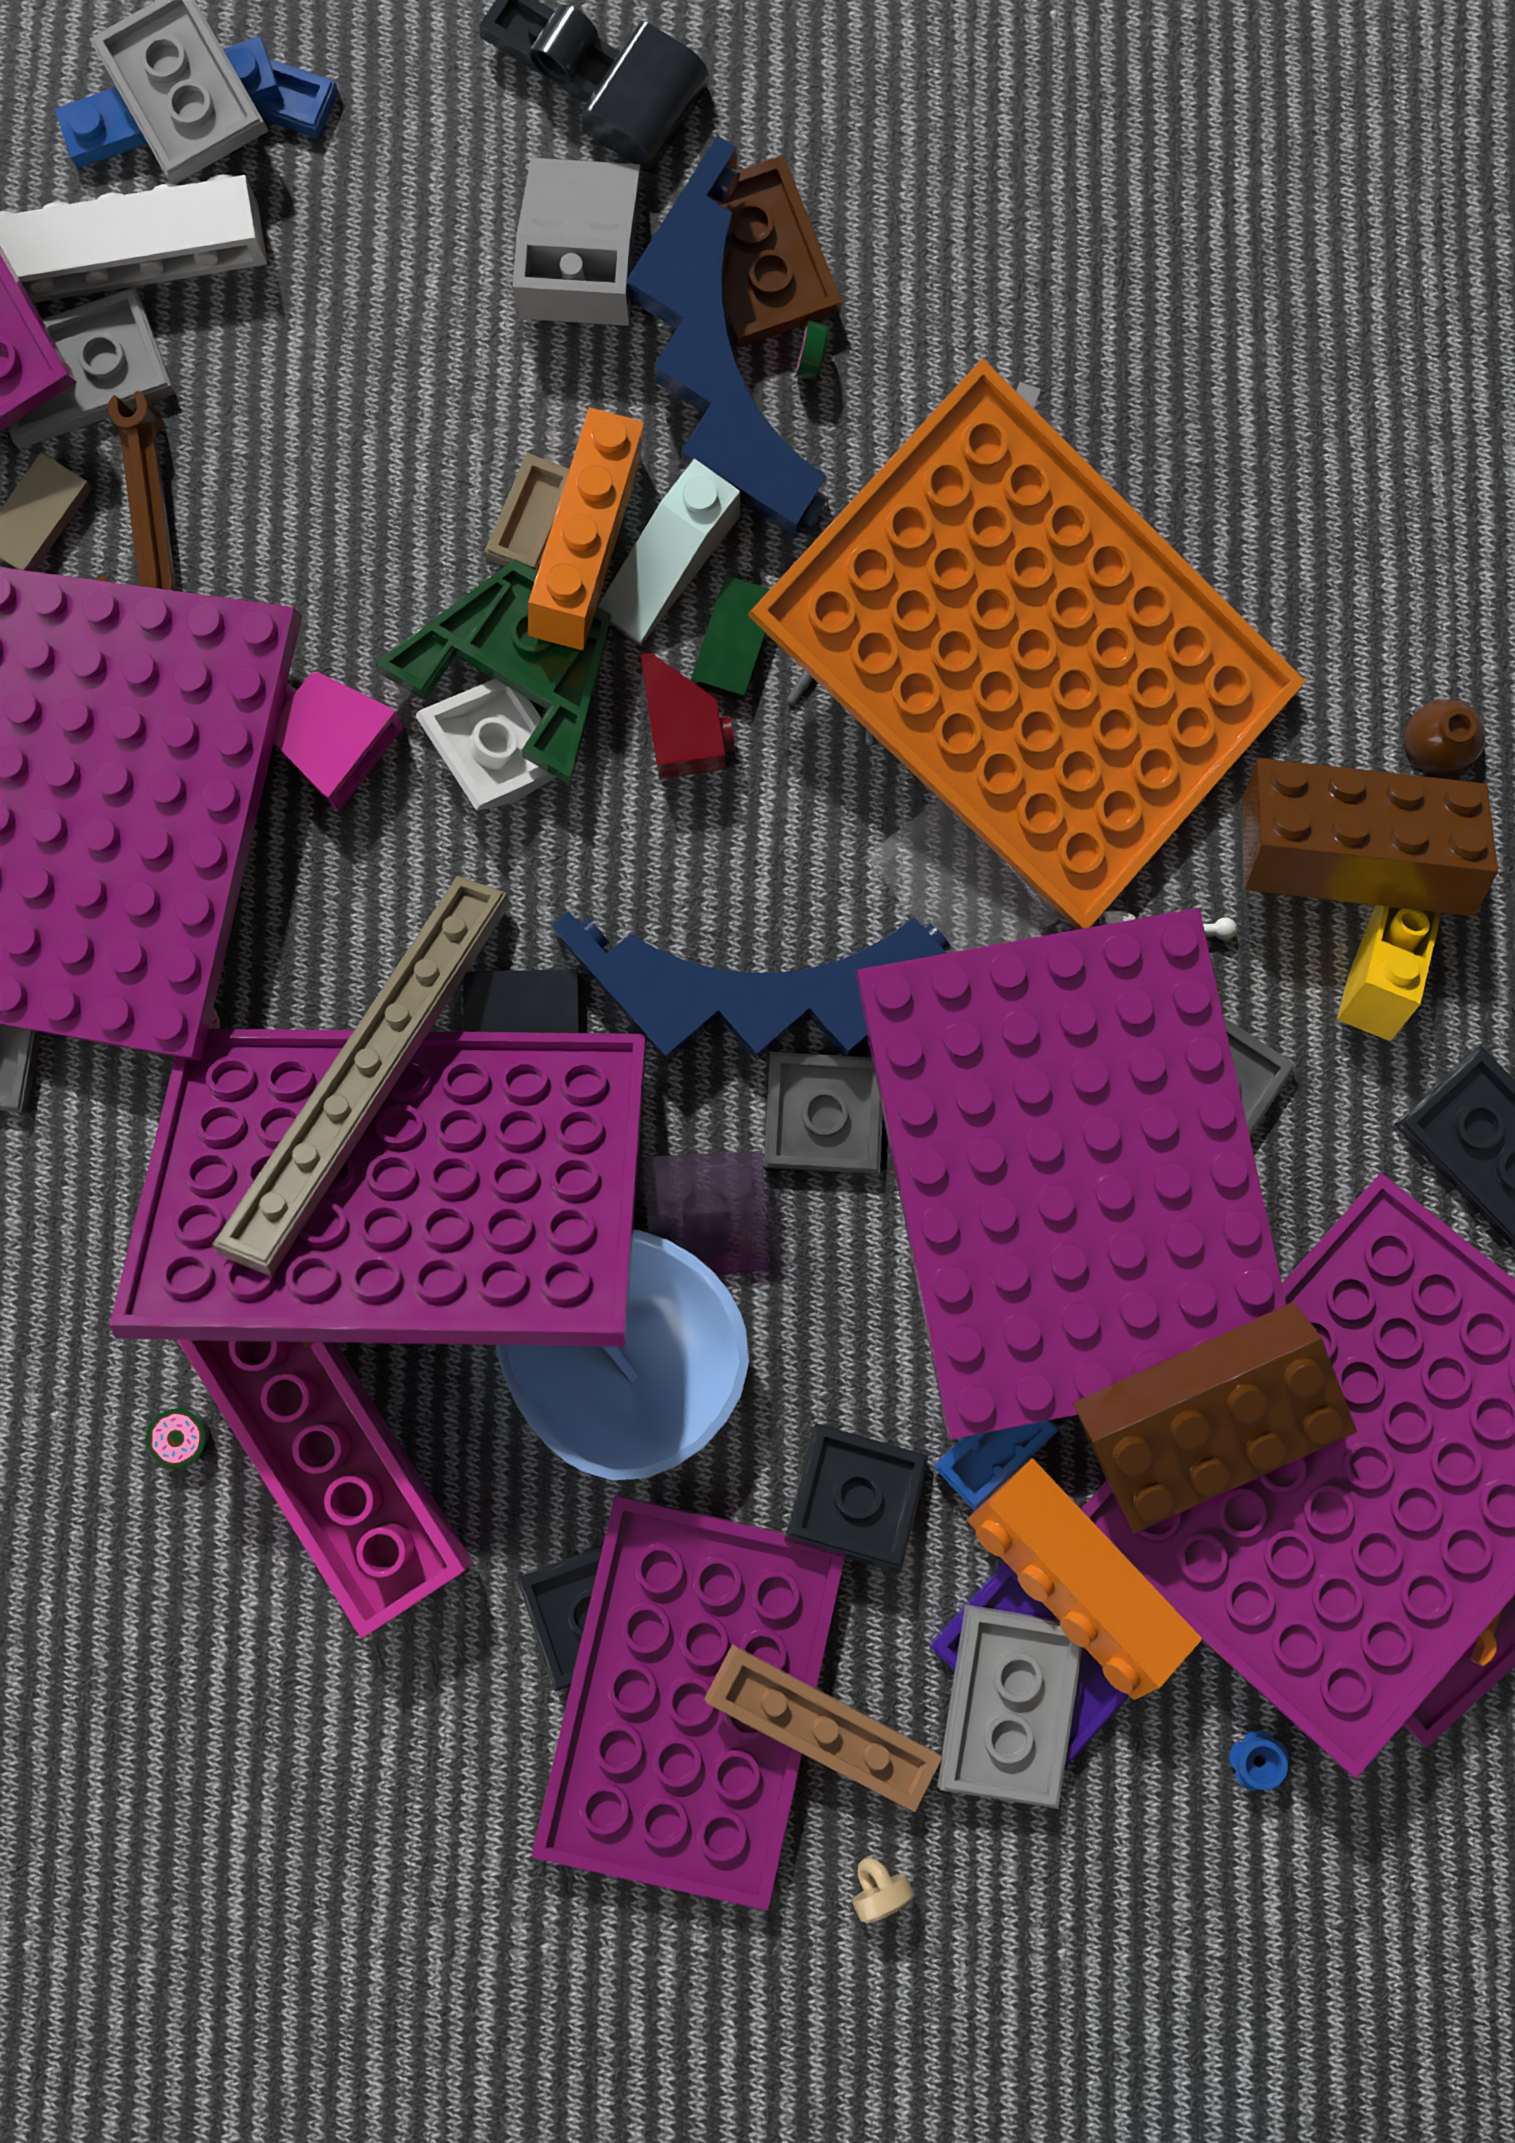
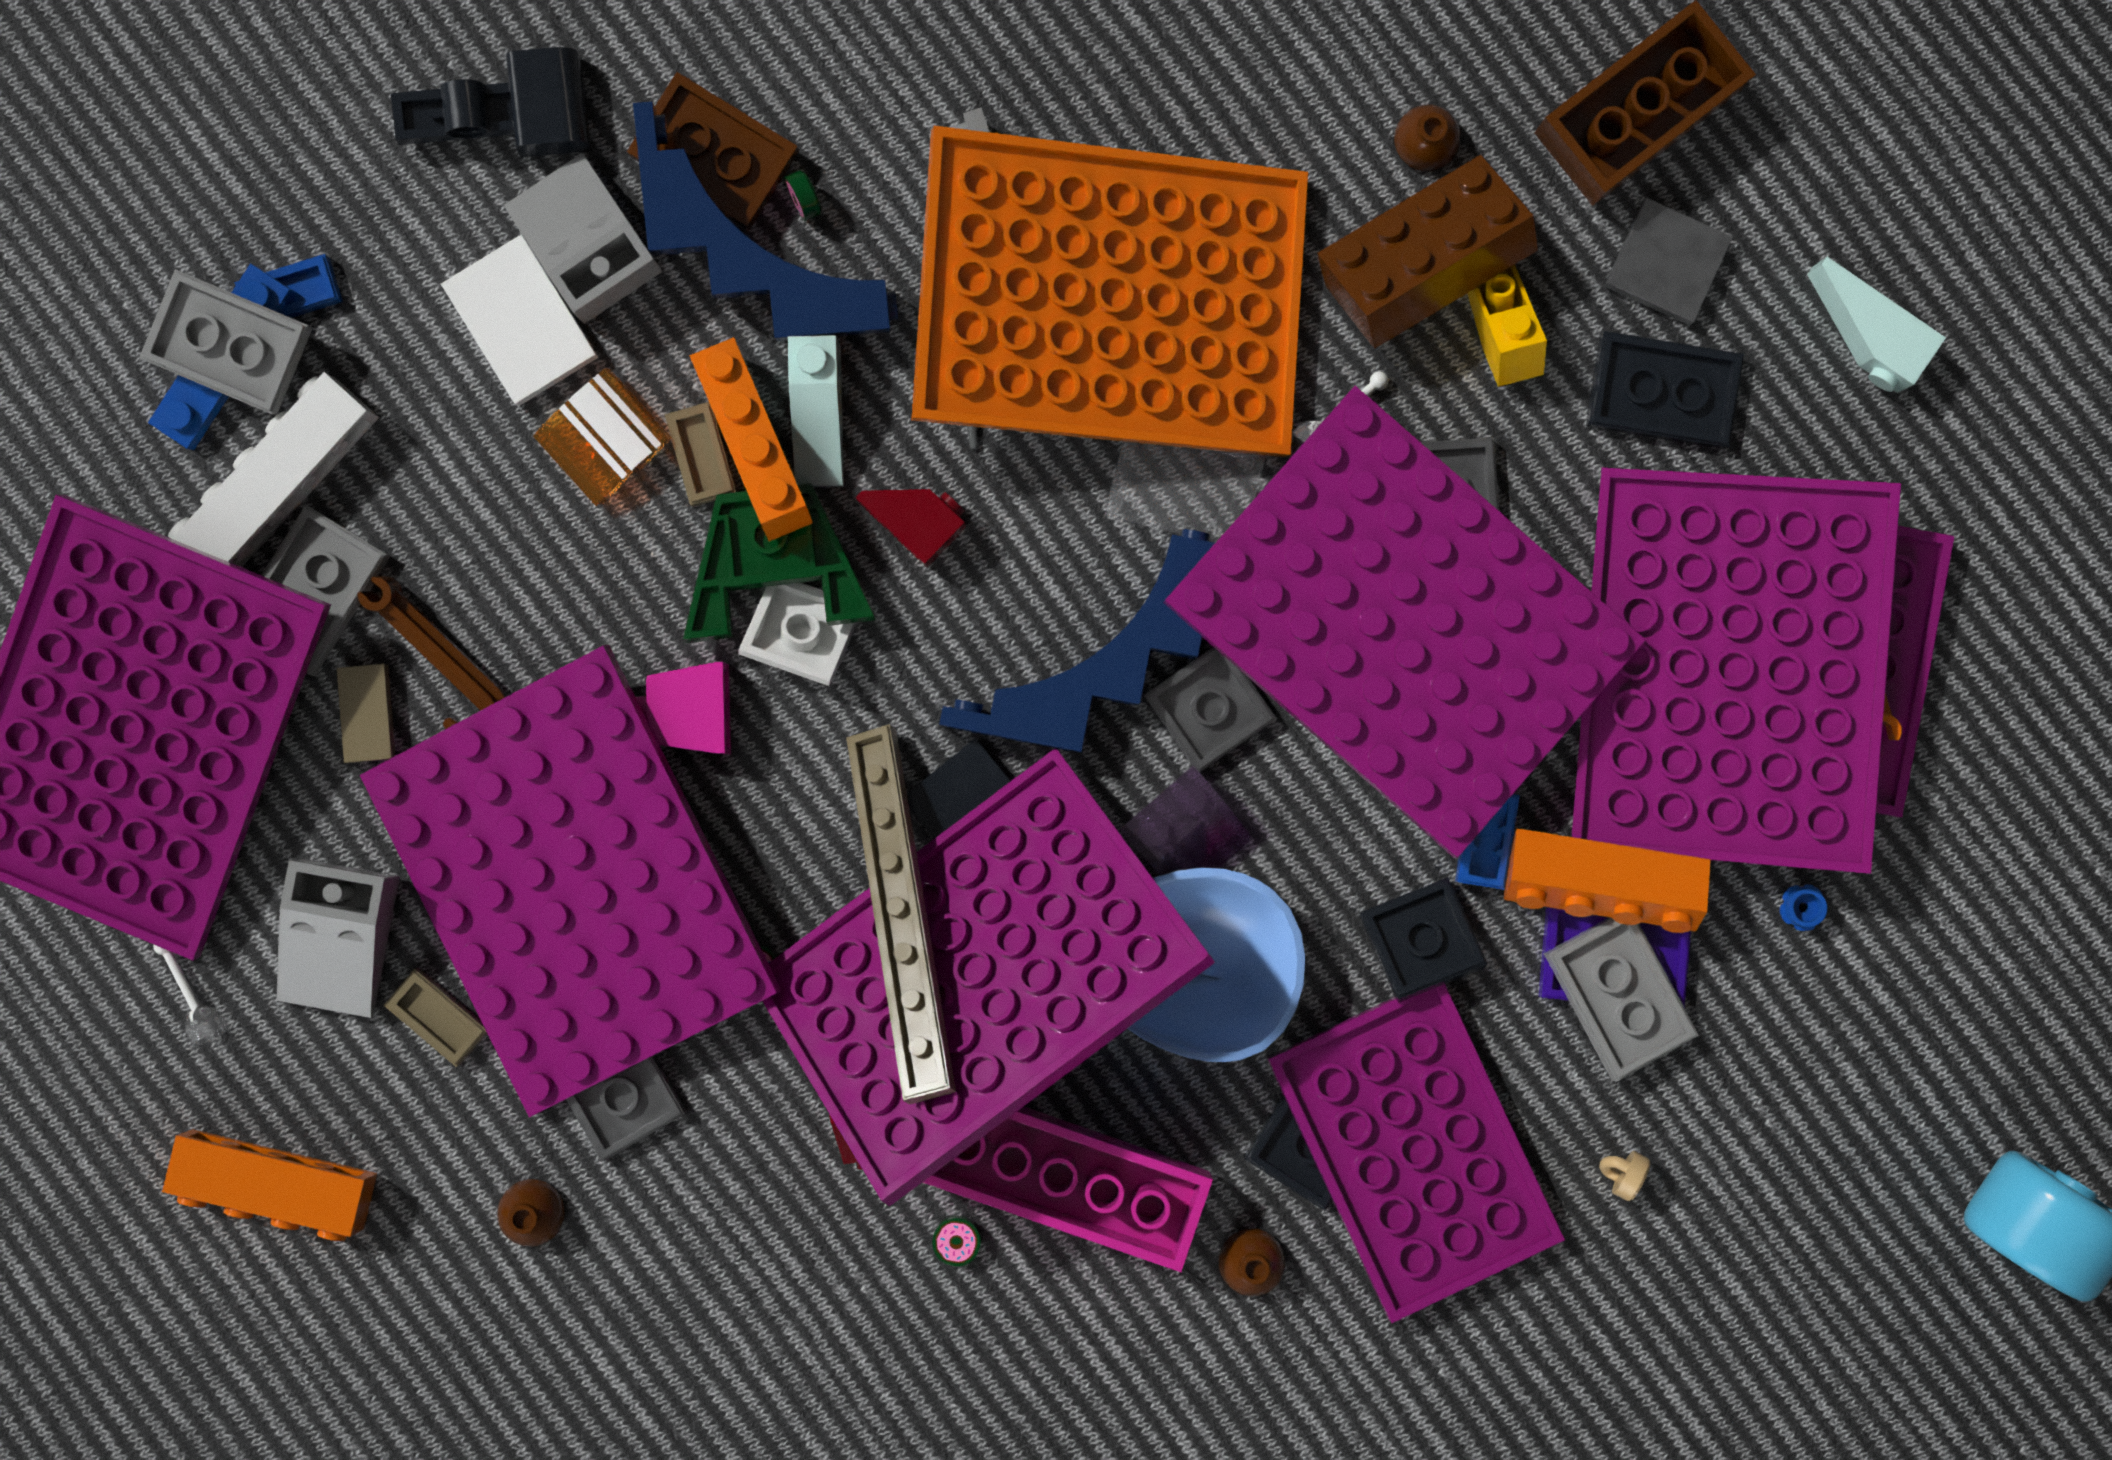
camera: 35 degrees left, 5 degrees up
(444, 1686) = (1252, 1262): none -> reddish brown brick
(453, 429) = (602, 436): none -> clear orange slope
(460, 272) = (519, 320): none -> white tile
(731, 641) = (904, 441): dark green tile -> none
(823, 1728) = (1513, 1101): medium nougat plate -> none
(1216, 1416) = (1614, 713): reddish brown brick -> none

